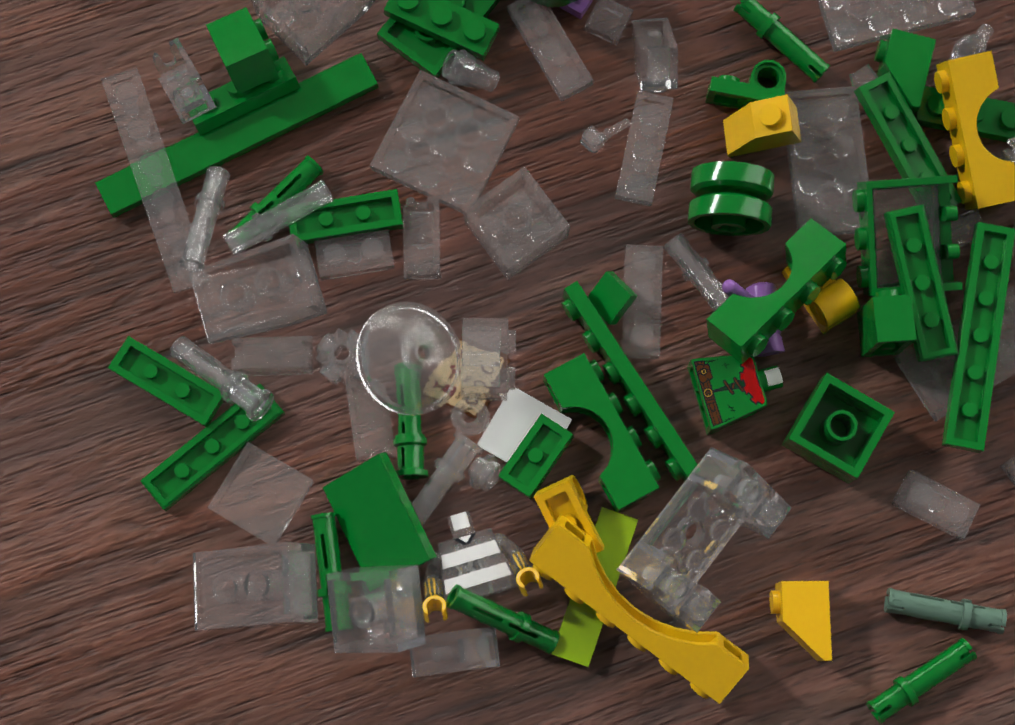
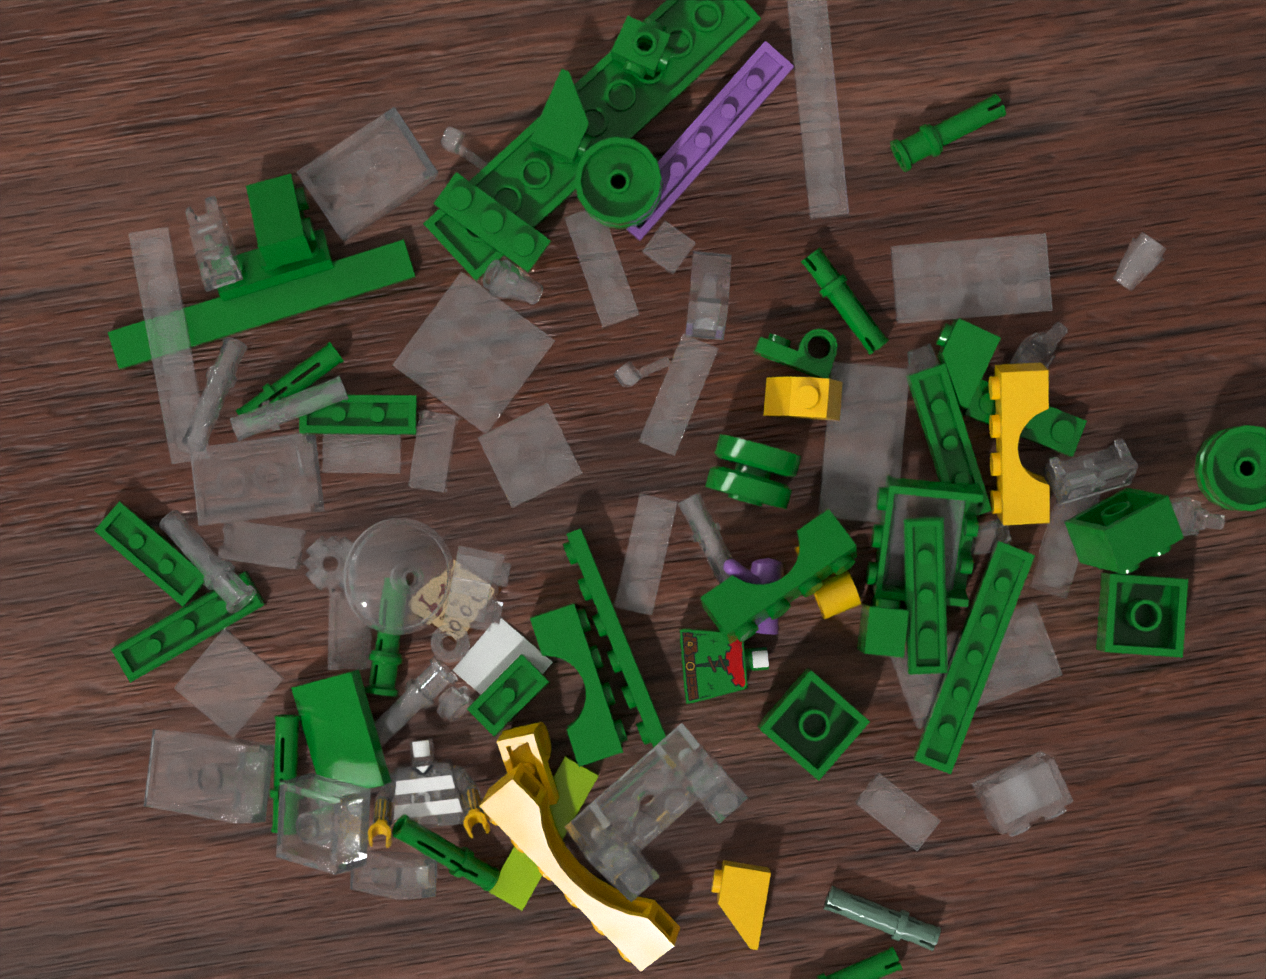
camera: 10 degrees right, 10 degrees up
(611, 297) = (613, 548): green tile -> none

